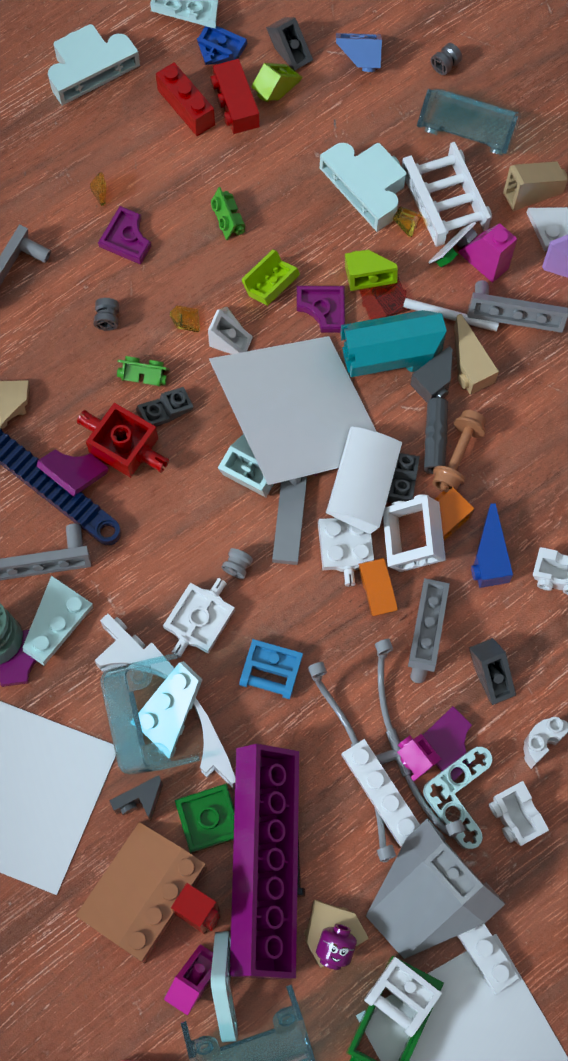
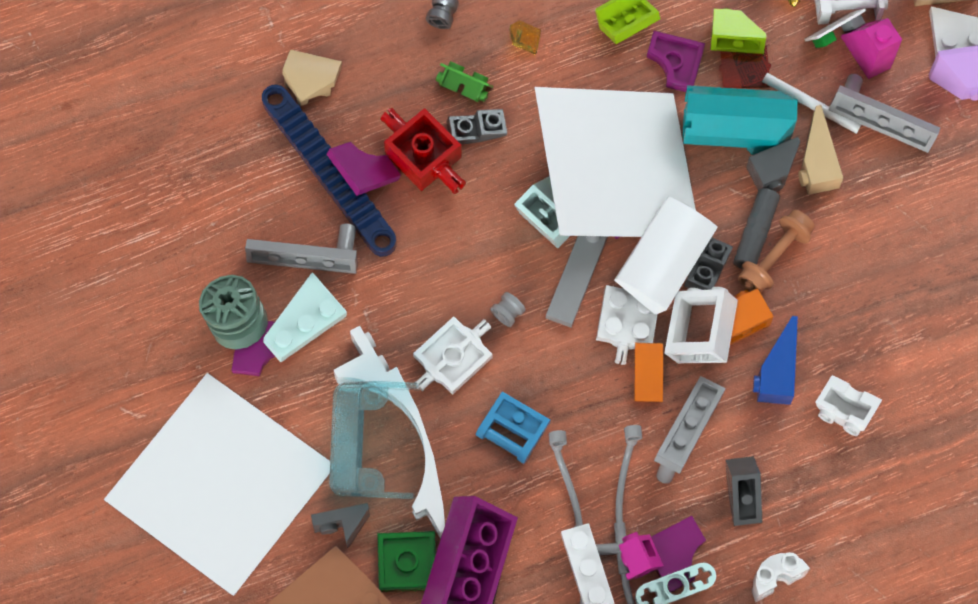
camera: 15 degrees right, 0 degrees up
(167, 709) = (395, 438): light aqua wing -> none
(227, 333) = (565, 63): white slope -> none

